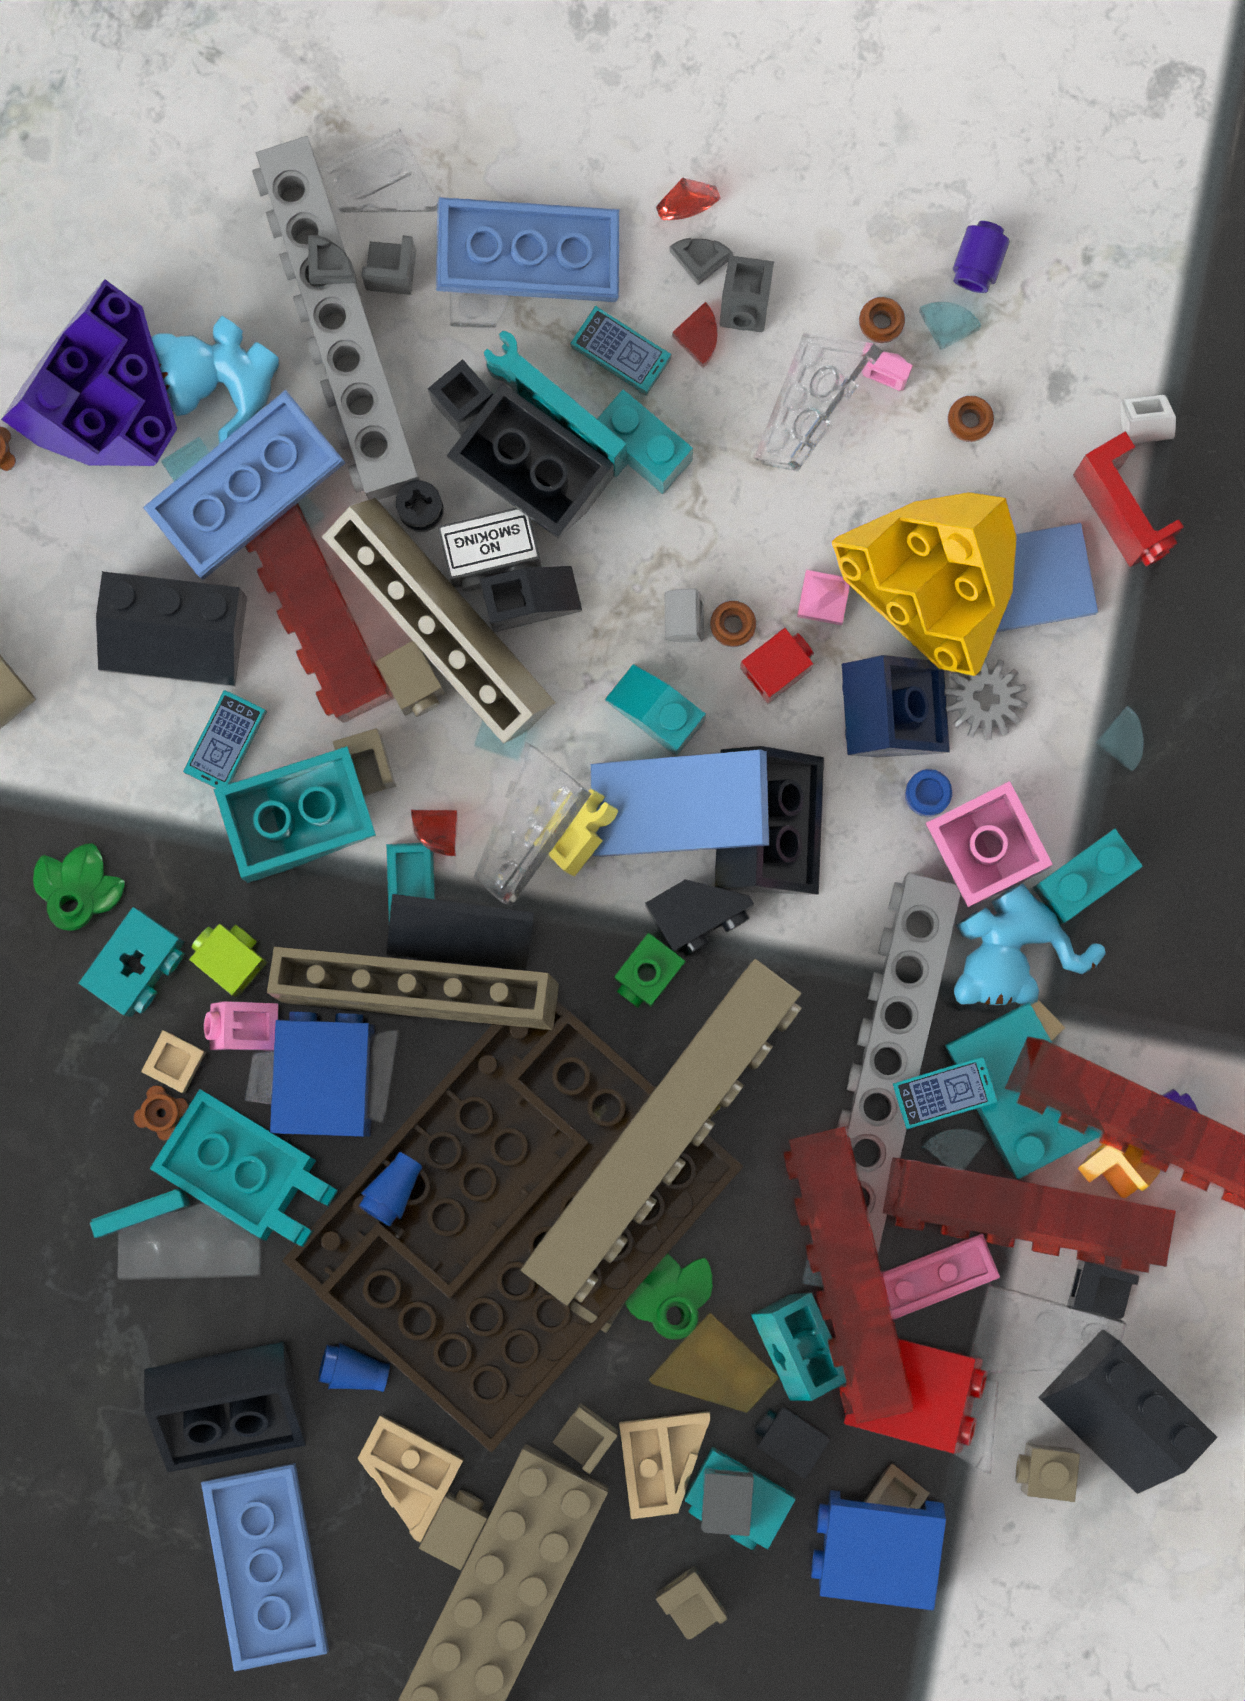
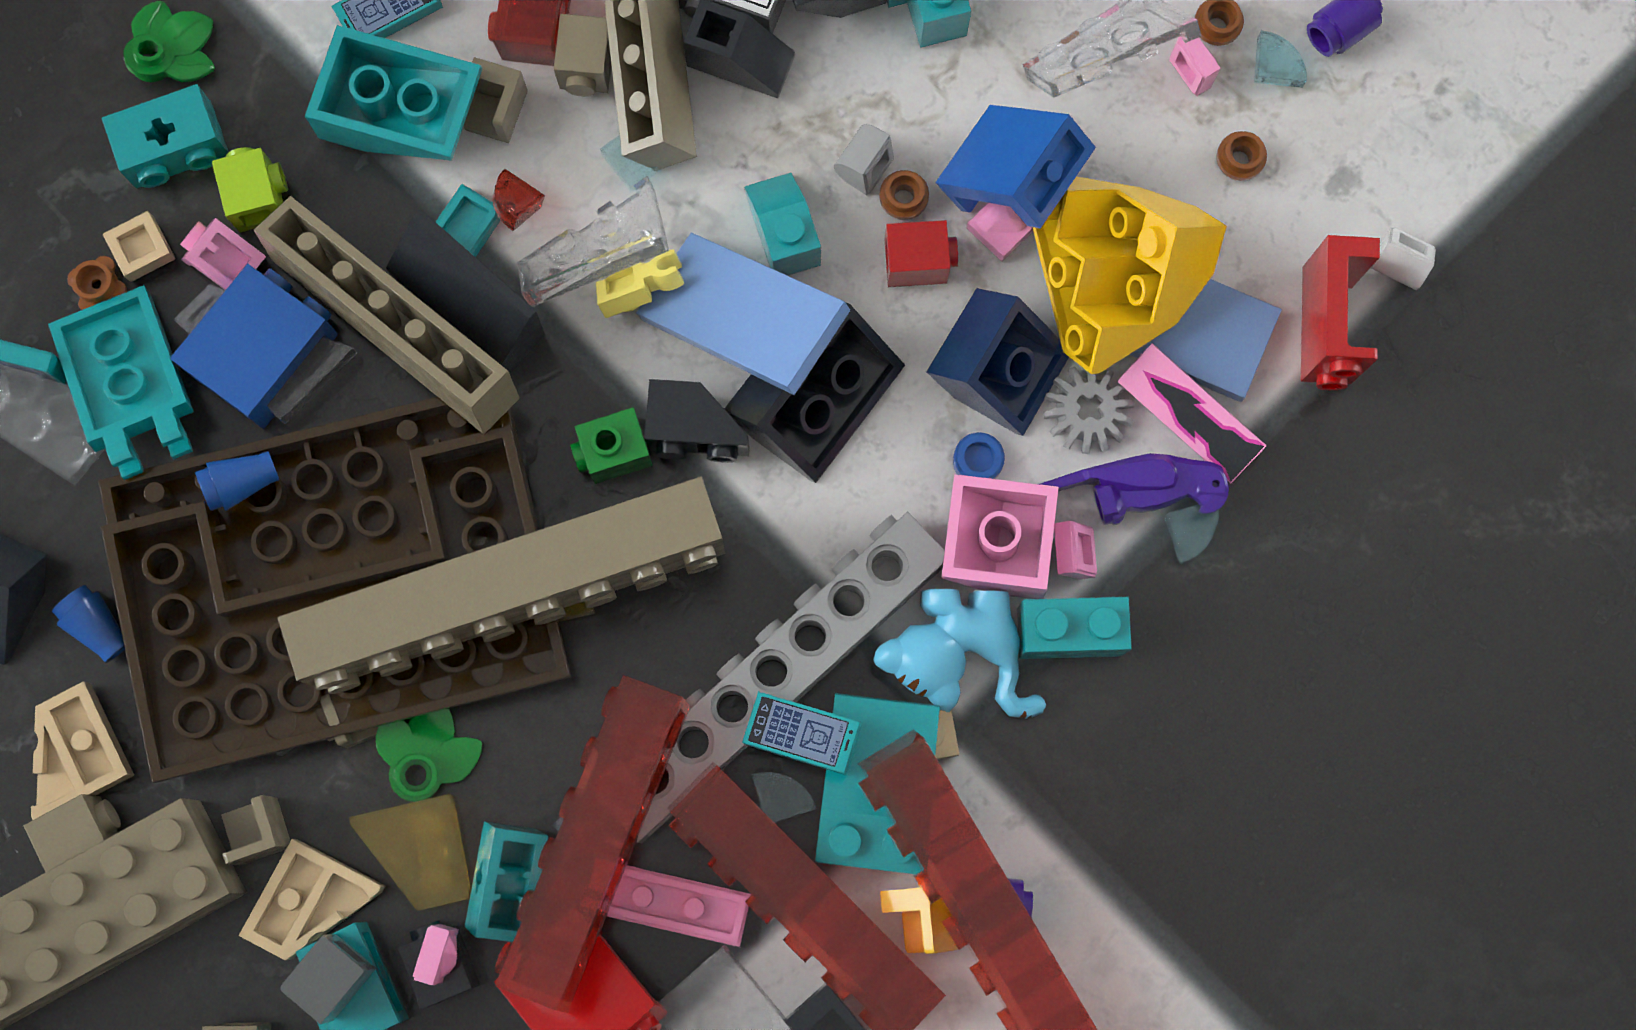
camera: 25 degrees right, 5 degrees down
(795, 1431) = (437, 954): none -> bright pink tile
(809, 548) = (1017, 162): none -> blue panel
(1049, 816) = (1075, 550): none -> bright pink tile
(1066, 651) = (1191, 412): none -> tile
(1071, 729) = (1149, 484): none -> dark purple animal

